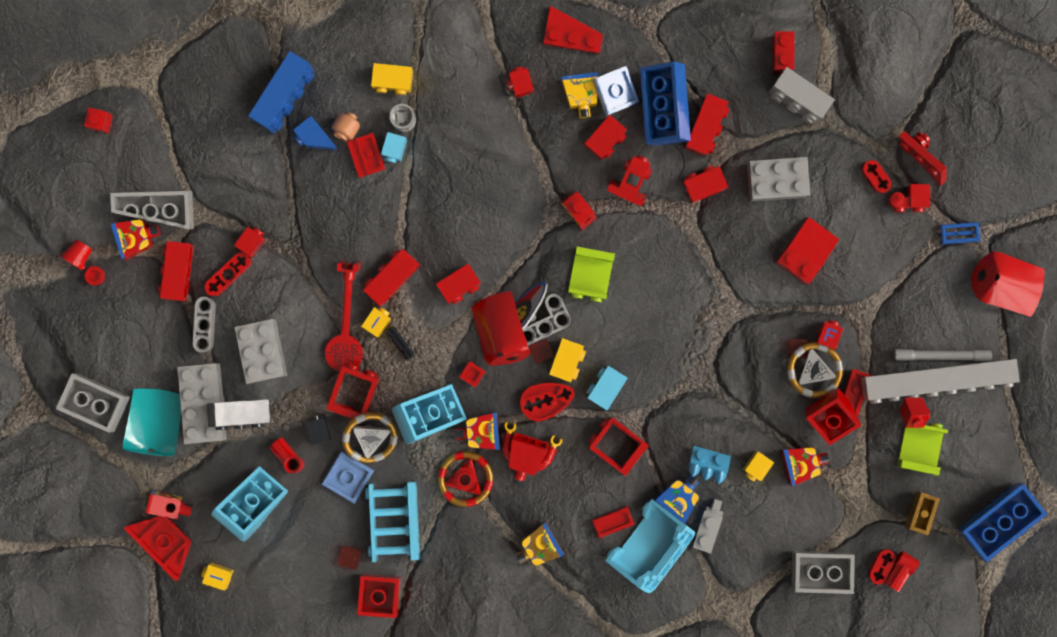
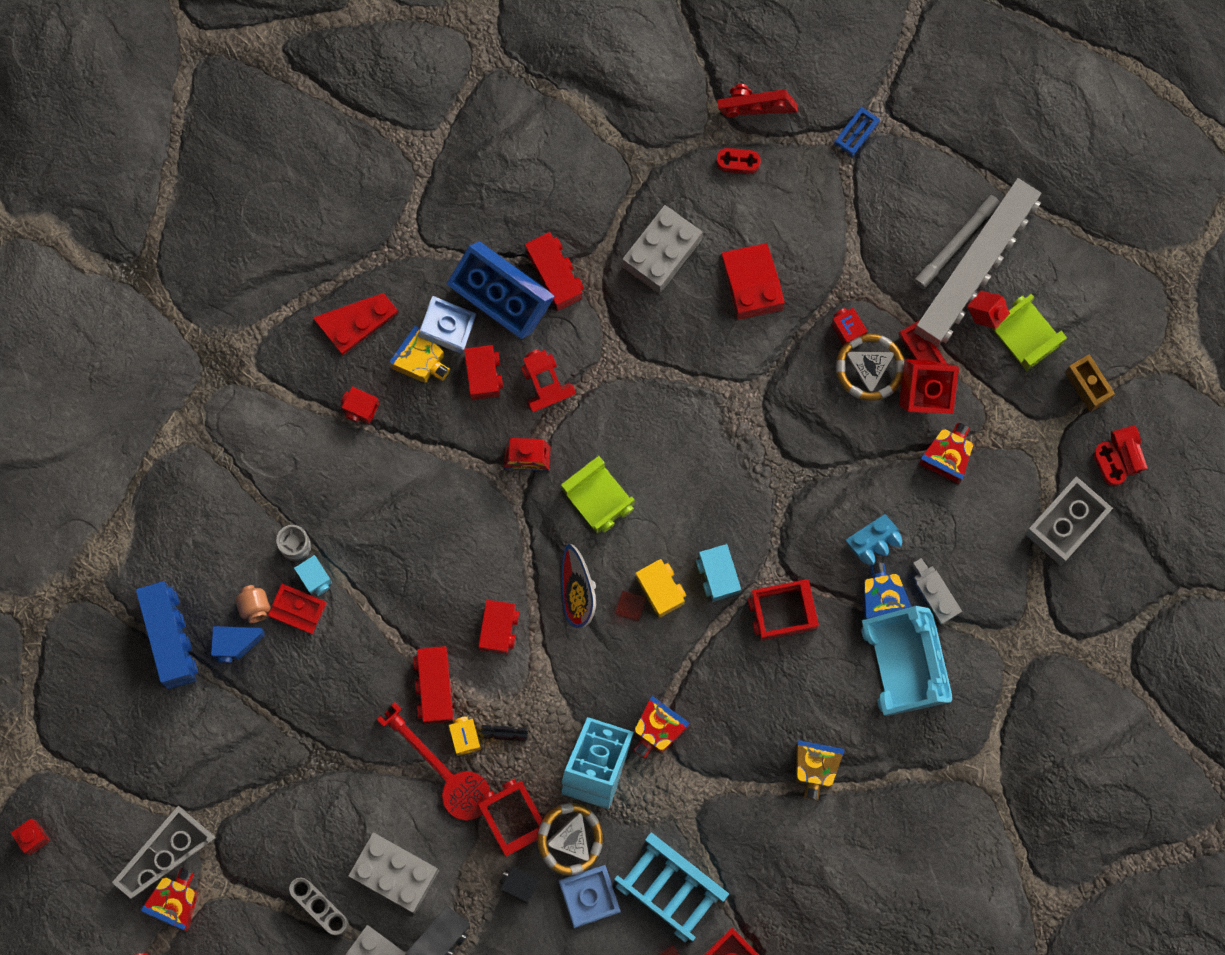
camera: 50 degrees left, 10 degrees down
(176, 271) = (242, 889): red brick -> none
(220, 287) = (282, 835): red beam -> none
(250, 241) = (279, 791): red brick -> none
(286, 454) = (515, 937): red piece -> none
(392, 78) = (247, 521): yellow brick -> none
(465, 479) = (689, 784): red piece -> none
(472, 374) = (595, 689): red plate -> none
(500, 329) = (576, 624): red piece -> none
(527, 453) = (716, 701): red torso -> none
(540, 390) = (667, 640): red piece -> none
(551, 320) = (603, 592): light grey beam -> none
(613, 522) = (853, 678): red tile -> none
(704, 184) = (607, 319): red brick -> none
(757, 466) = (916, 497): yellow brick -> none
(783, 51) = (548, 146): red brick -> none
(793, 344) = (829, 366): clear red tile -> none
(801, 96) = (603, 163): light grey brick -> none
(916, 199) = (790, 142): red brick -> none
(1002, 521) = (1160, 318): blue brick -> none
(1018, 285) = (952, 125): piece -> none

